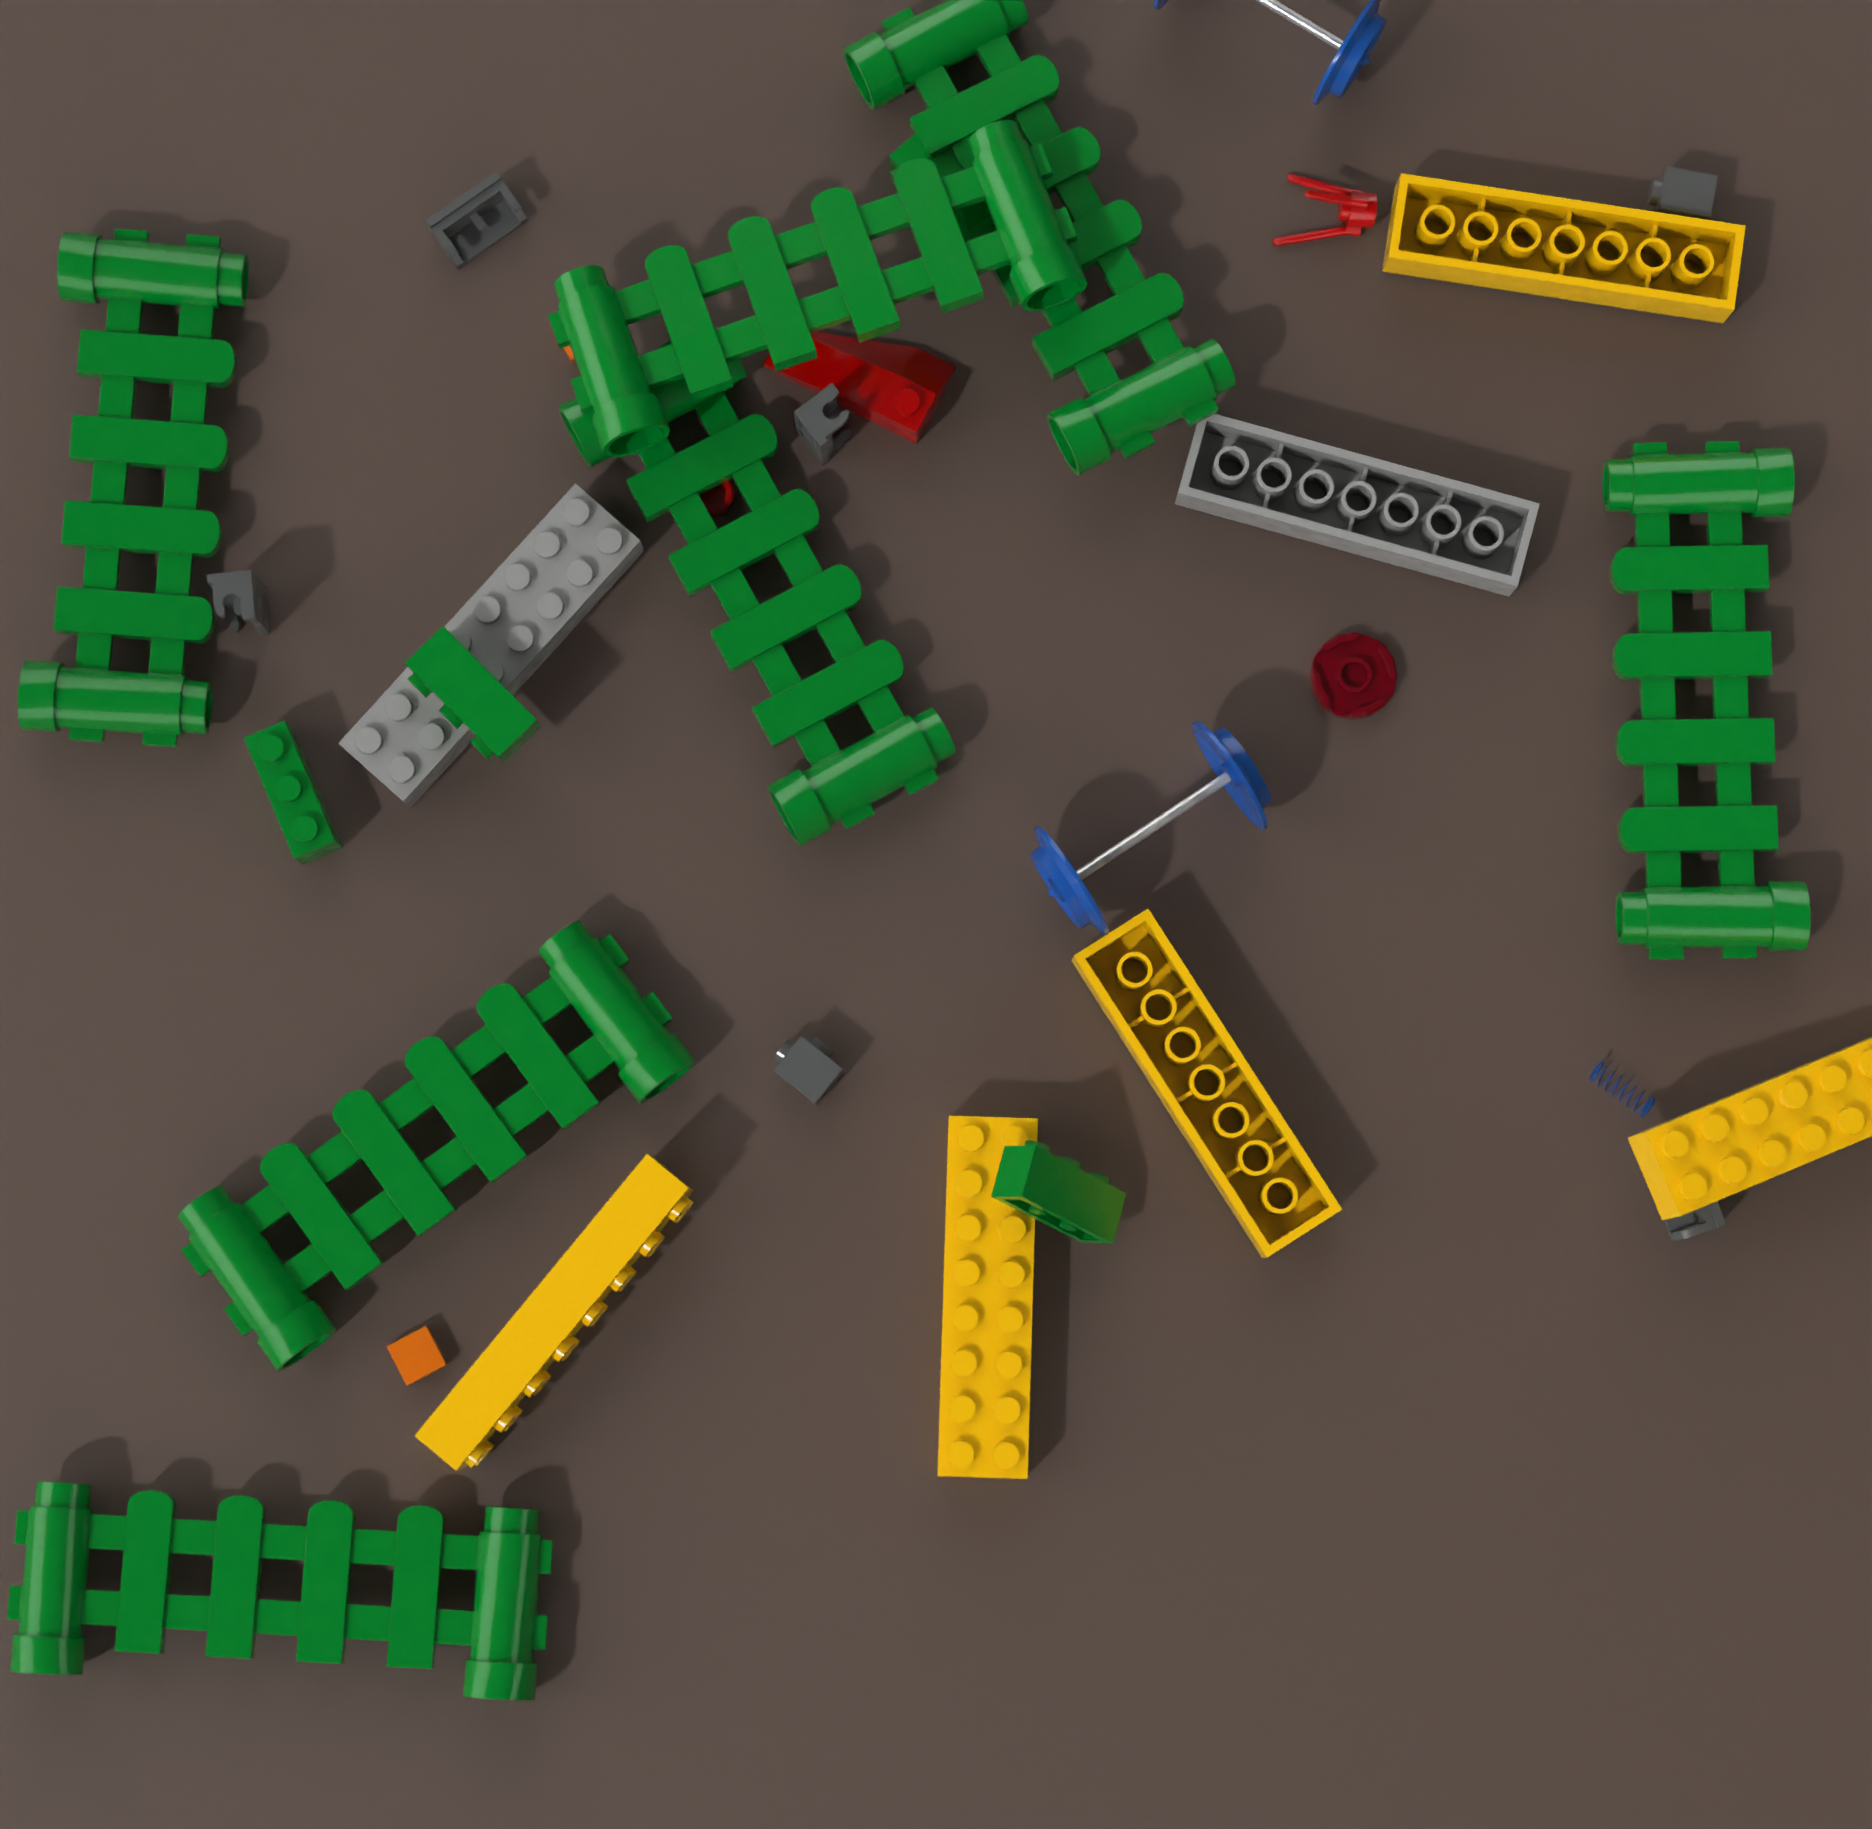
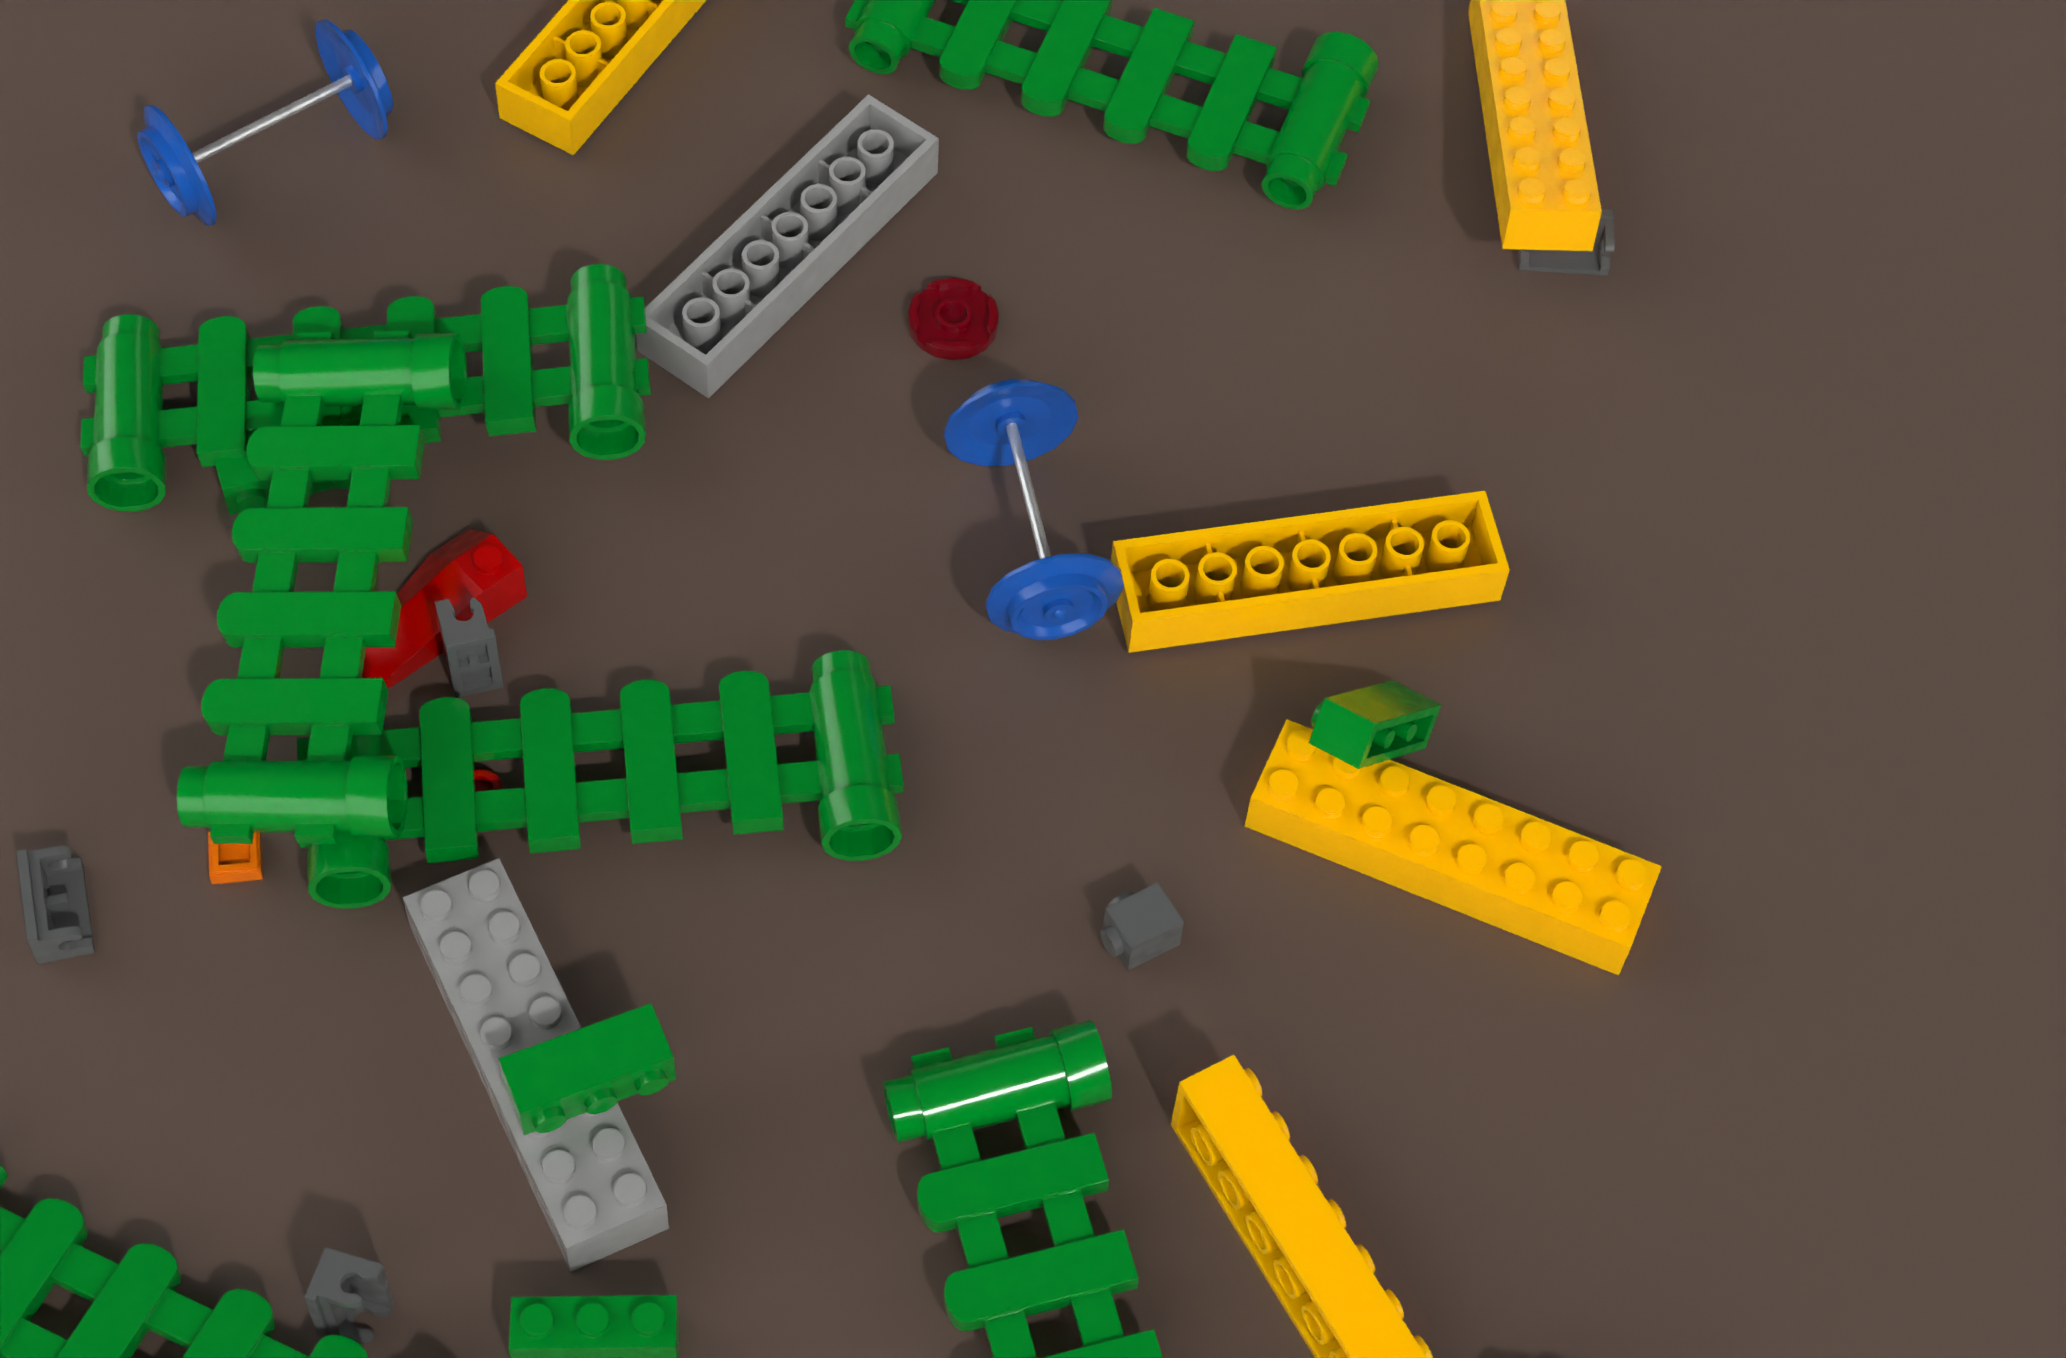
camera: 70 degrees left, 25 degrees down
(1354, 208) = (500, 151): red plant -> none
(1647, 1106) = (1470, 247): blue piece -> none

